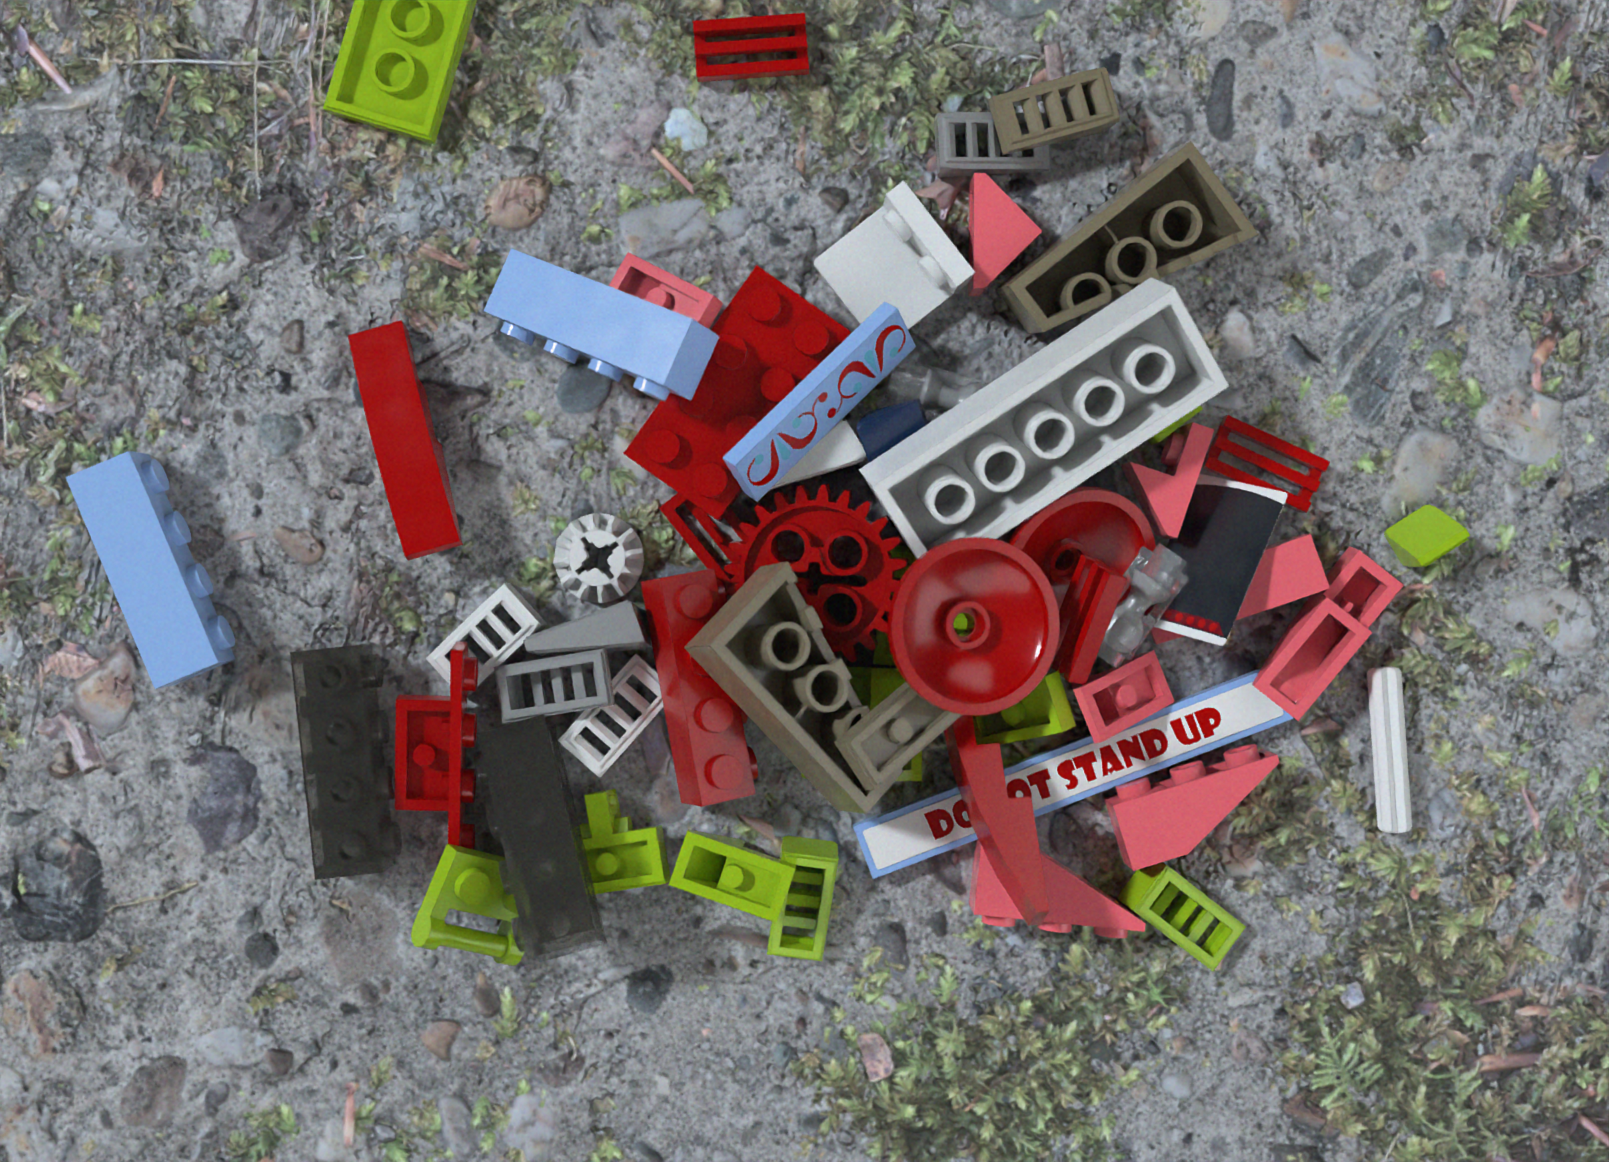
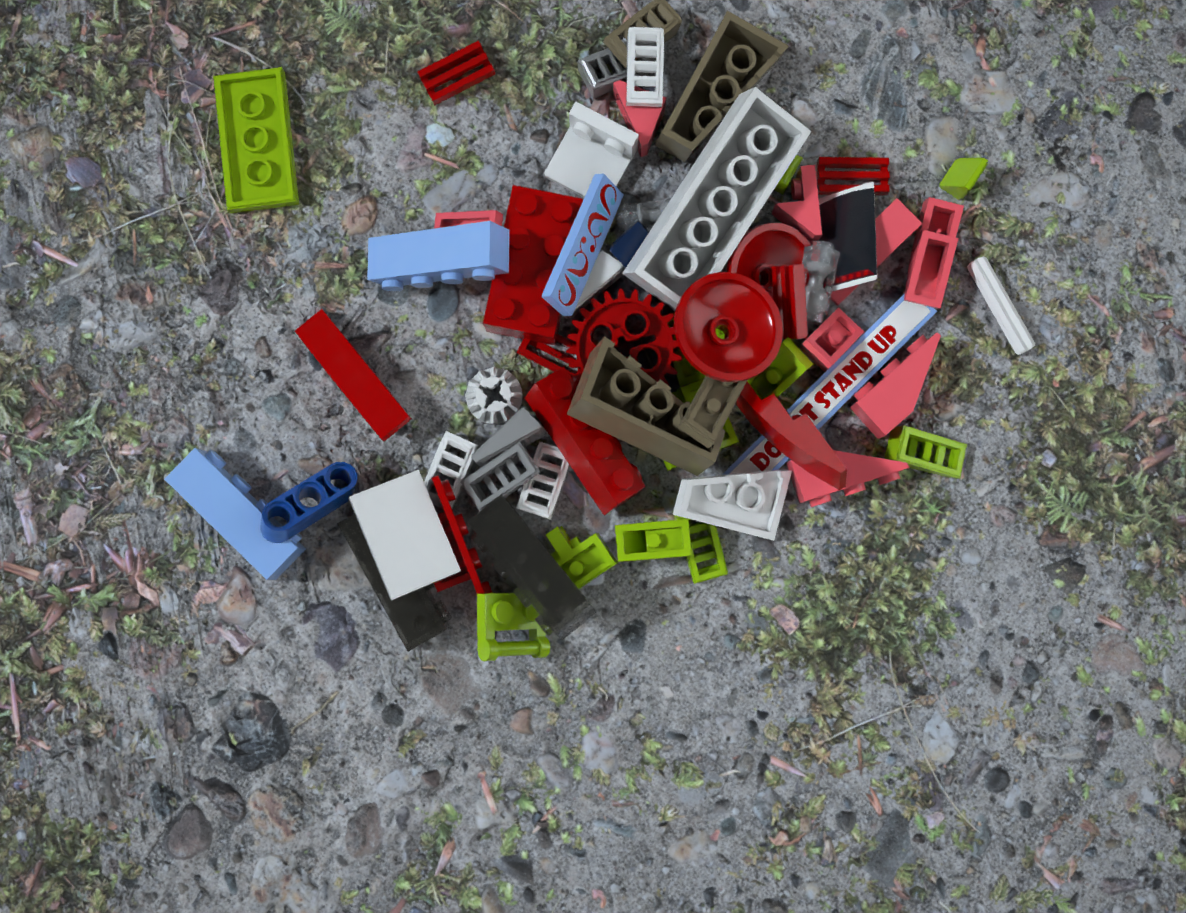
camera: 15 degrees left, 5 degrees down
(284, 586) = (300, 516): none -> blue beam
(378, 714) = (404, 534): none -> white tile
(875, 870) = (736, 501): none -> white wing
(1052, 130) = (645, 43): none -> white slope

